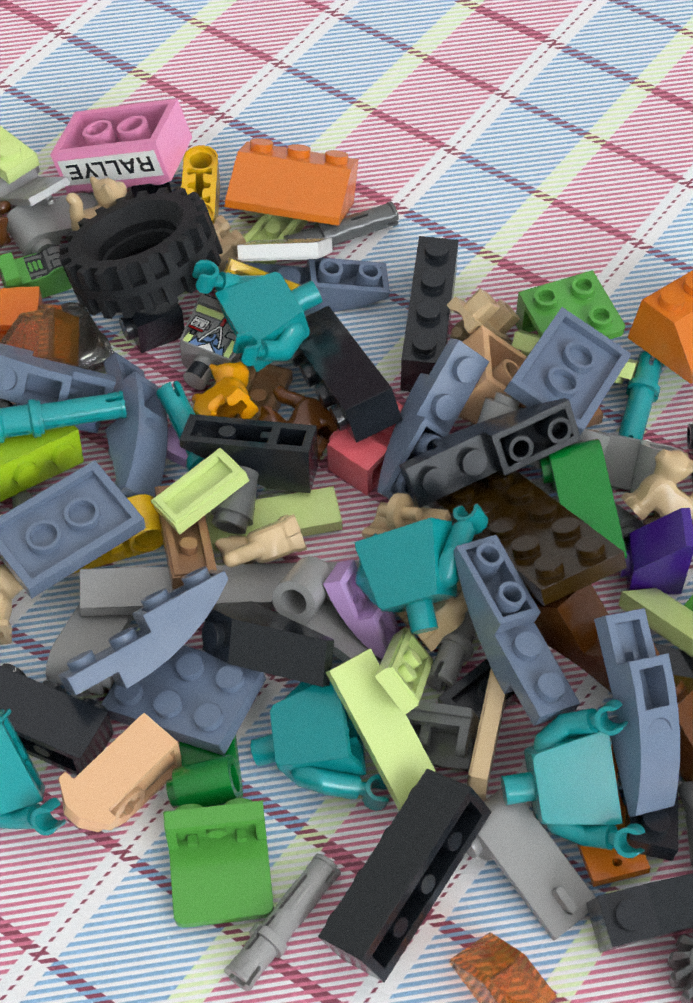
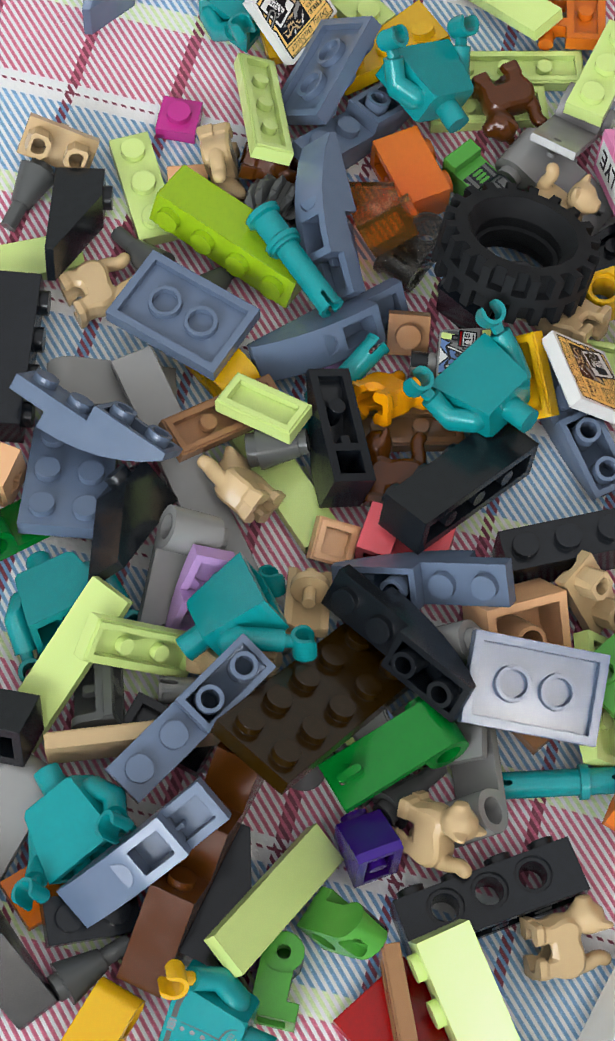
camera: 65 degrees right, 10 degrees up
(162, 366) = (407, 332): none -> medium nougat plate
(347, 496) = (332, 541): none -> light nougat tile

